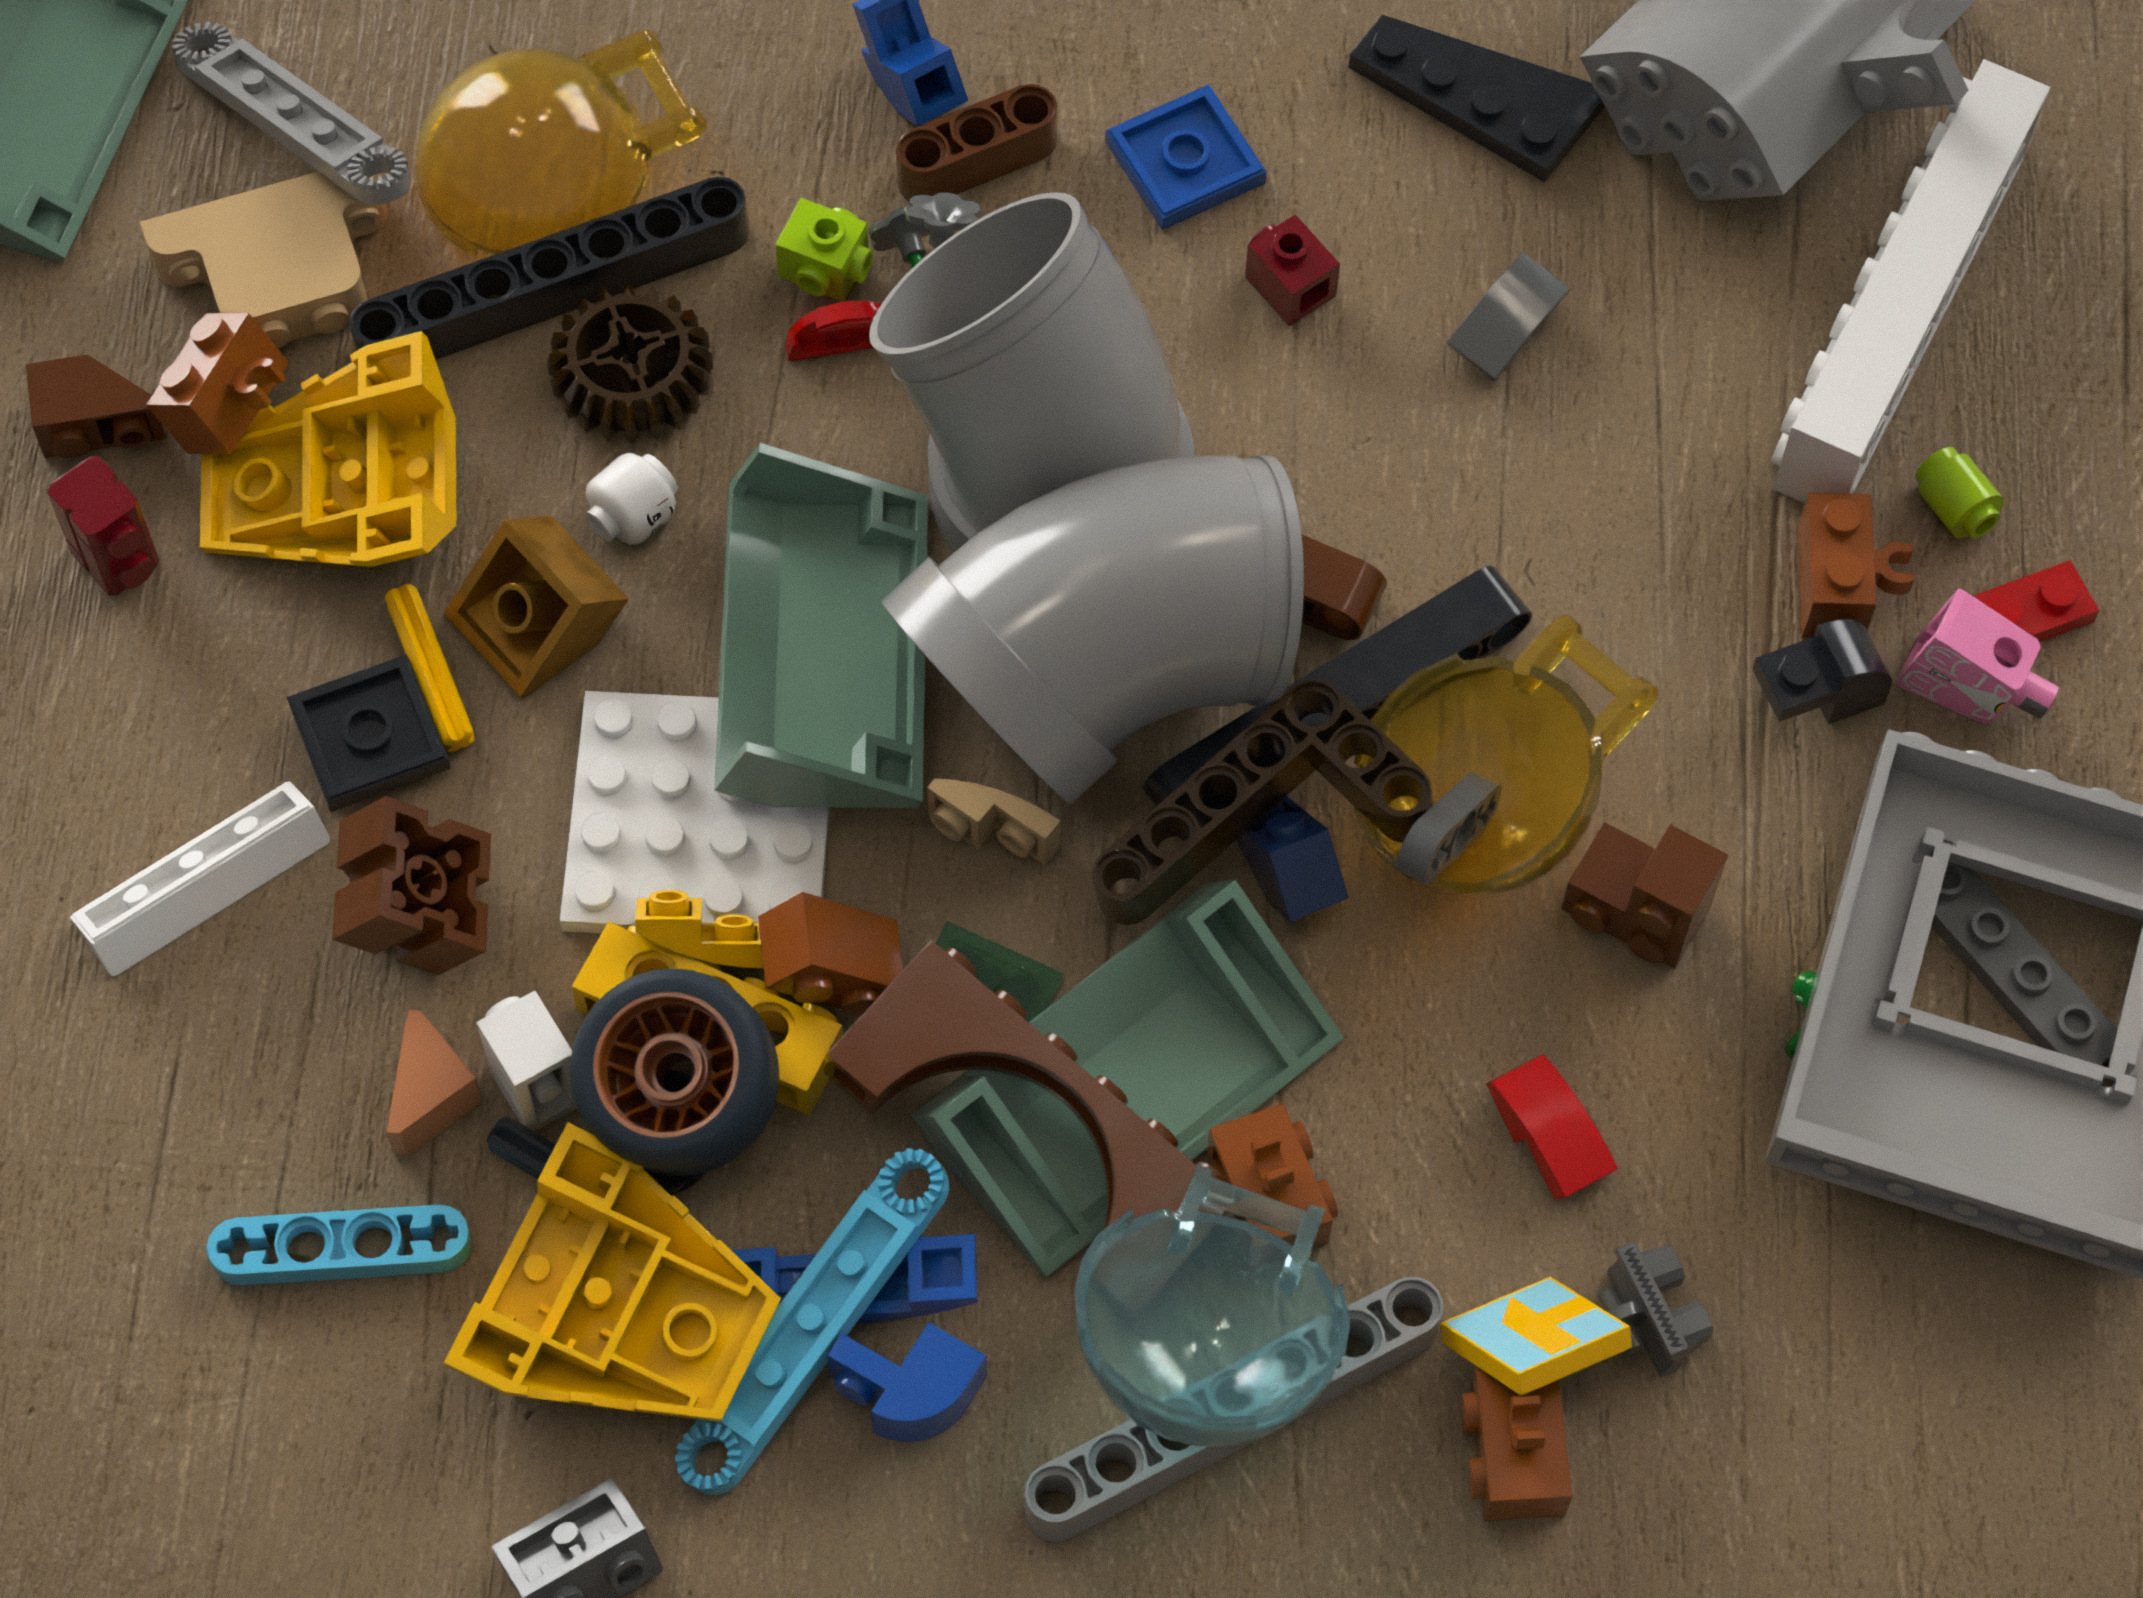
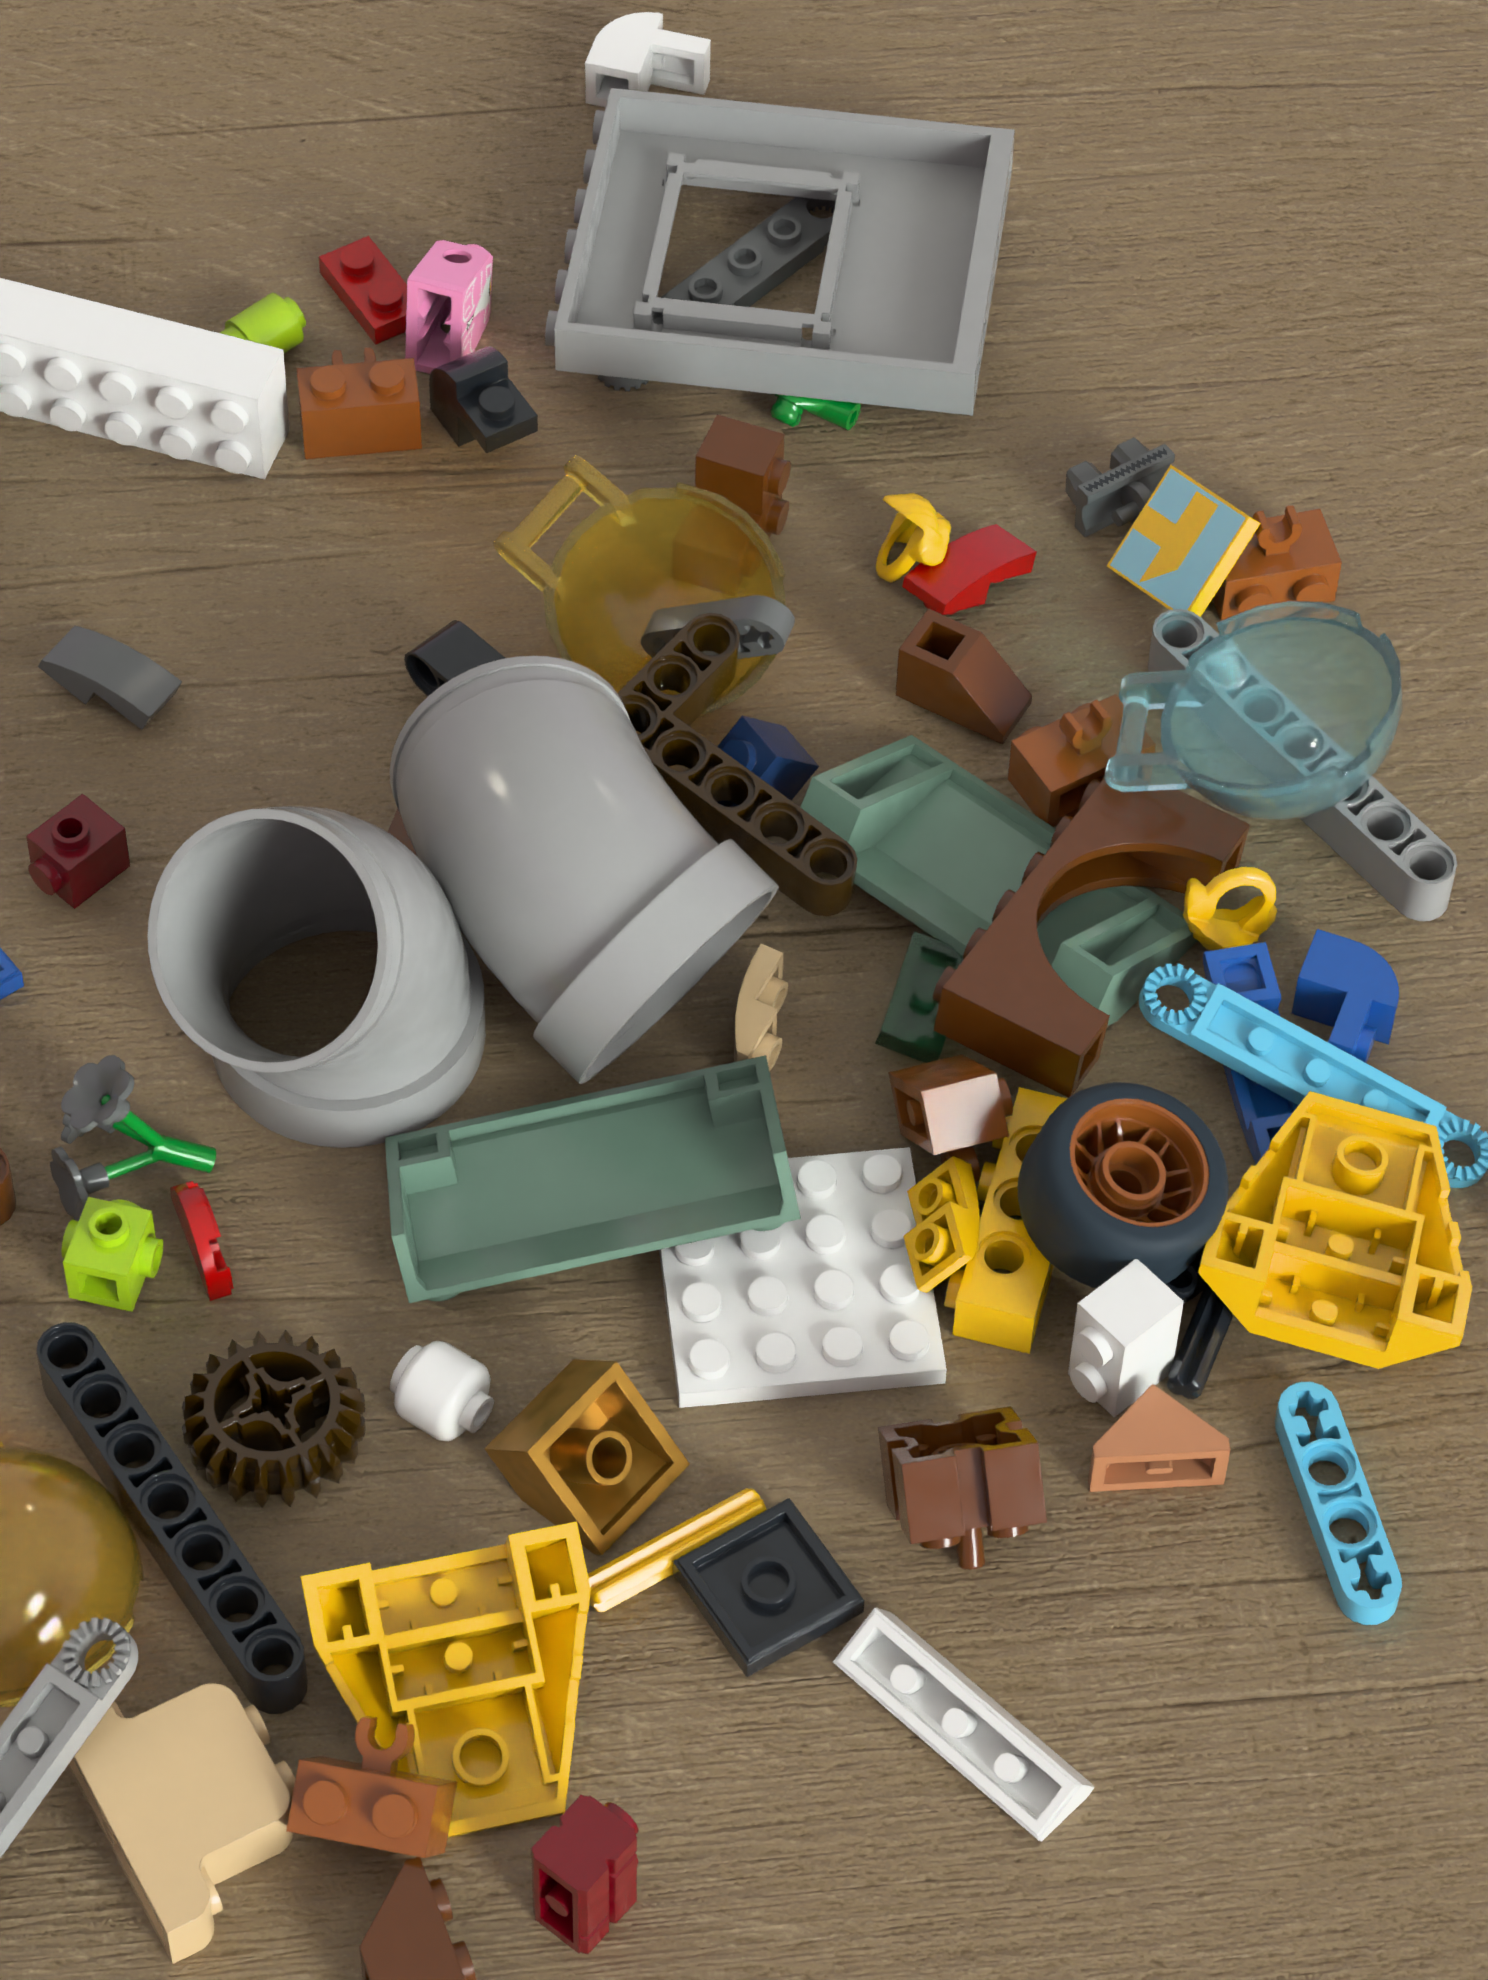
camera: 100 degrees left, 10 degrees down
(1033, 1285) = (1229, 927): none -> yellow piece
(1388, 1080) = (960, 677): none -> reddish brown slope
(1600, 1072) = (920, 528): none -> yellow piece

